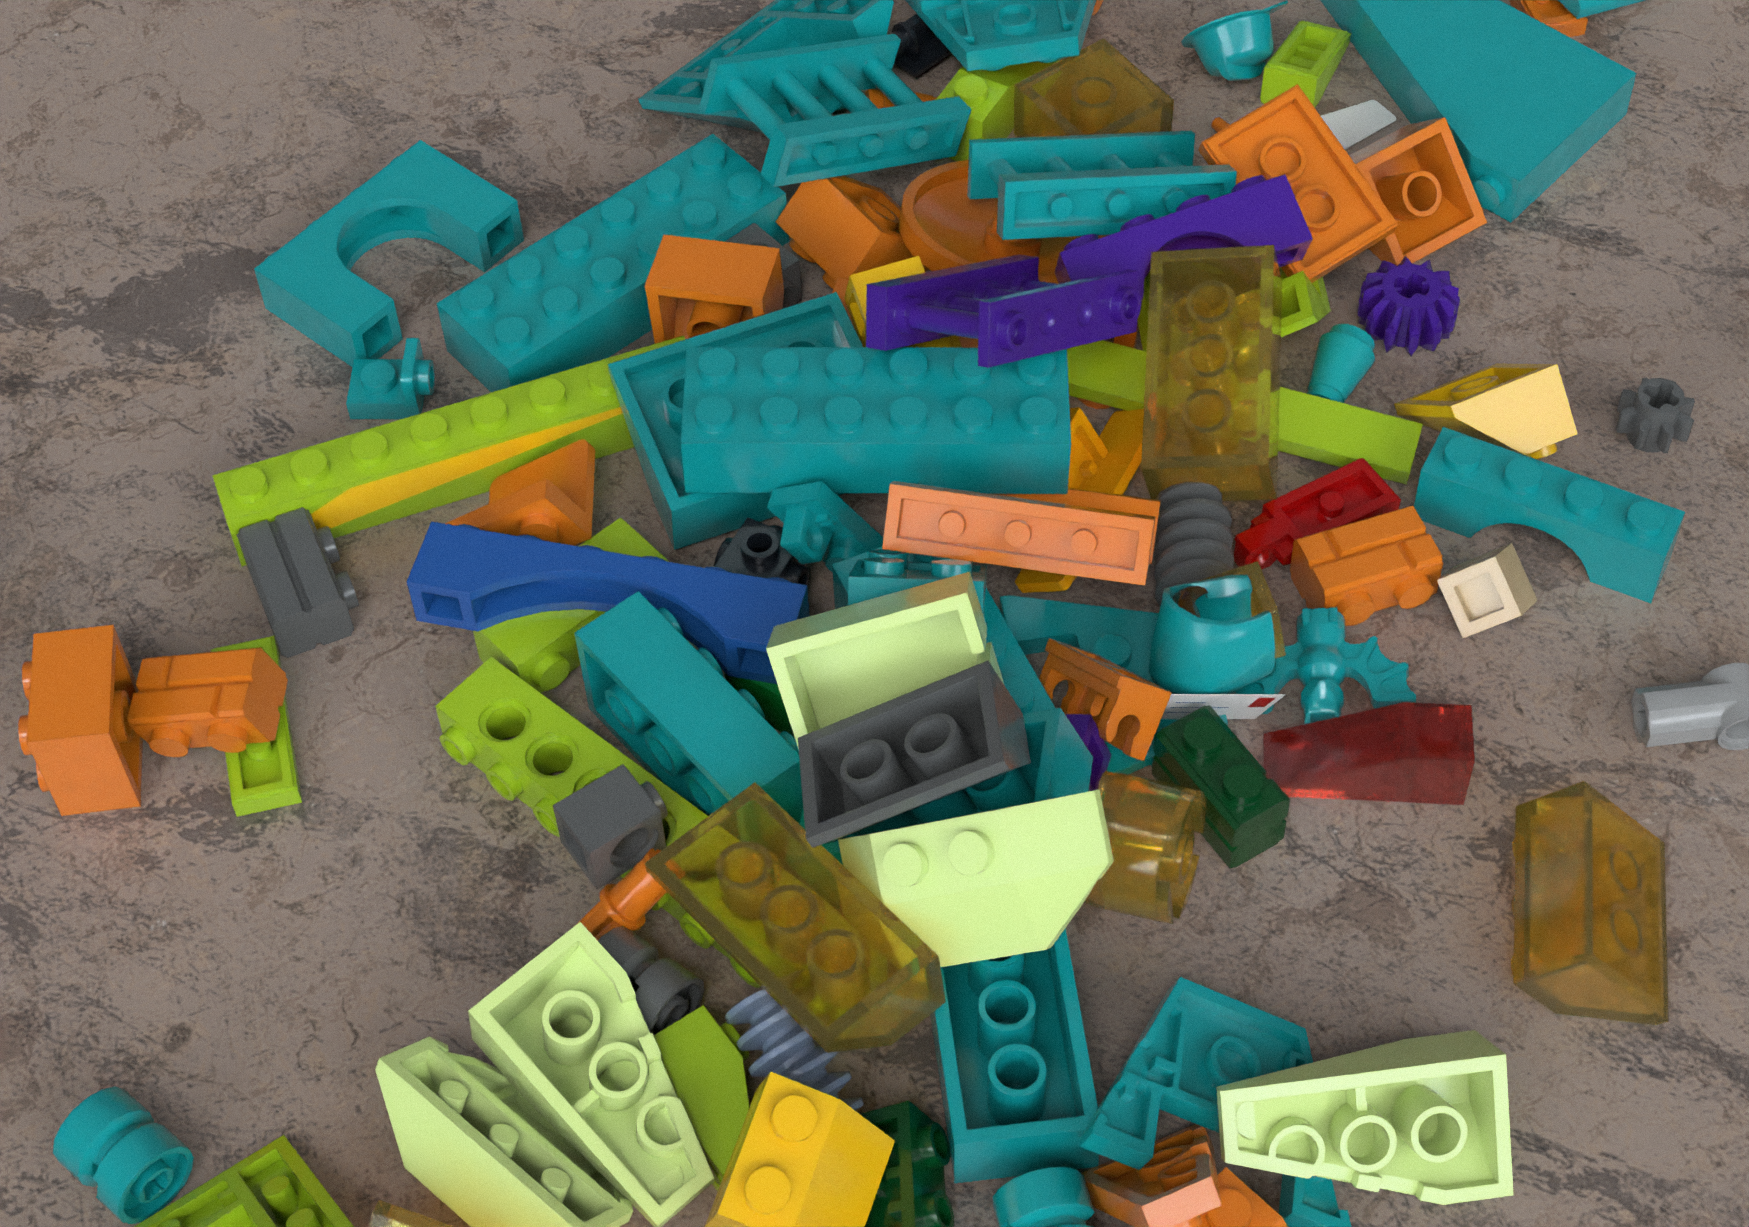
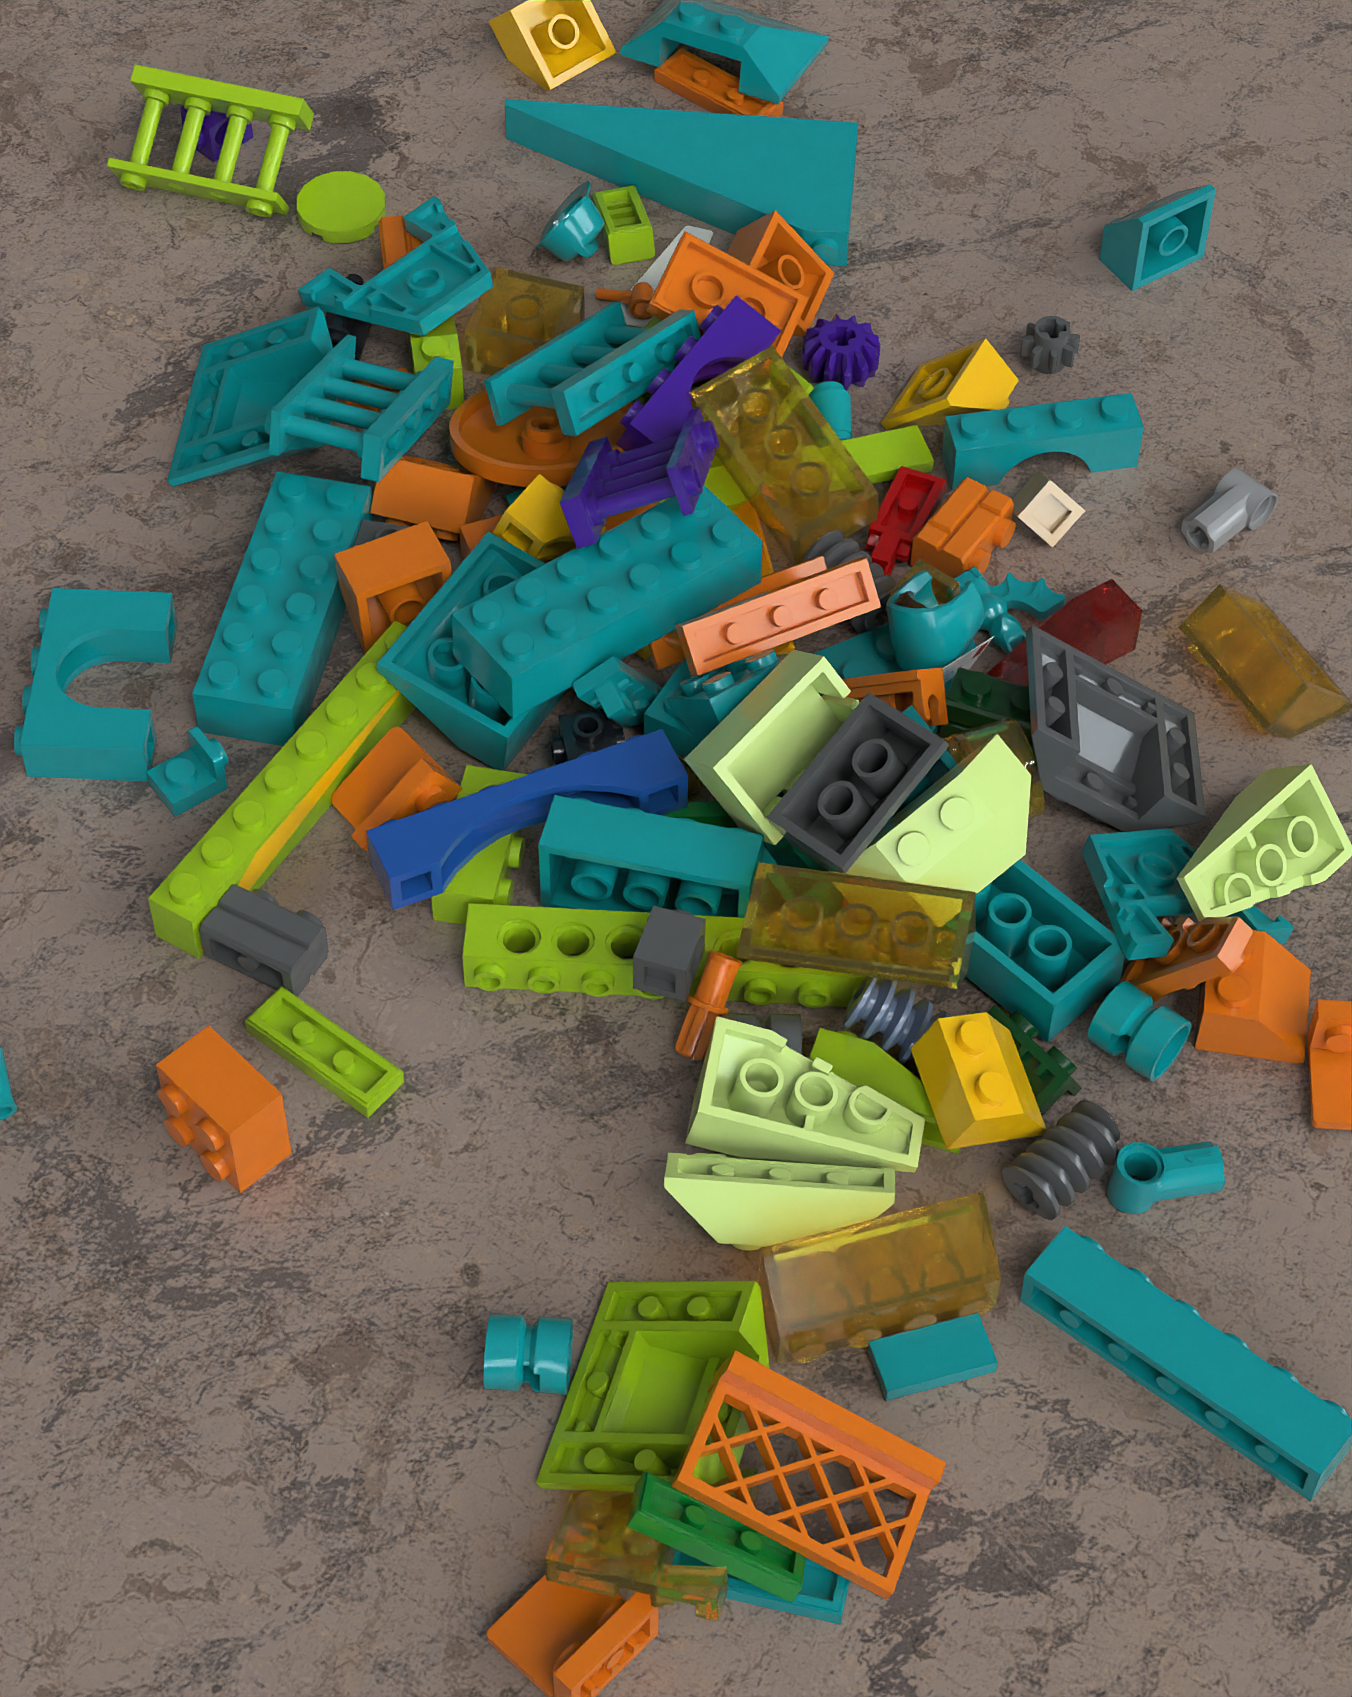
camera: 40 degrees left, 0 degrees up
(207, 701) = (299, 1044): orange brick -> none
(1306, 881) = (1110, 741): none -> dark grey slope

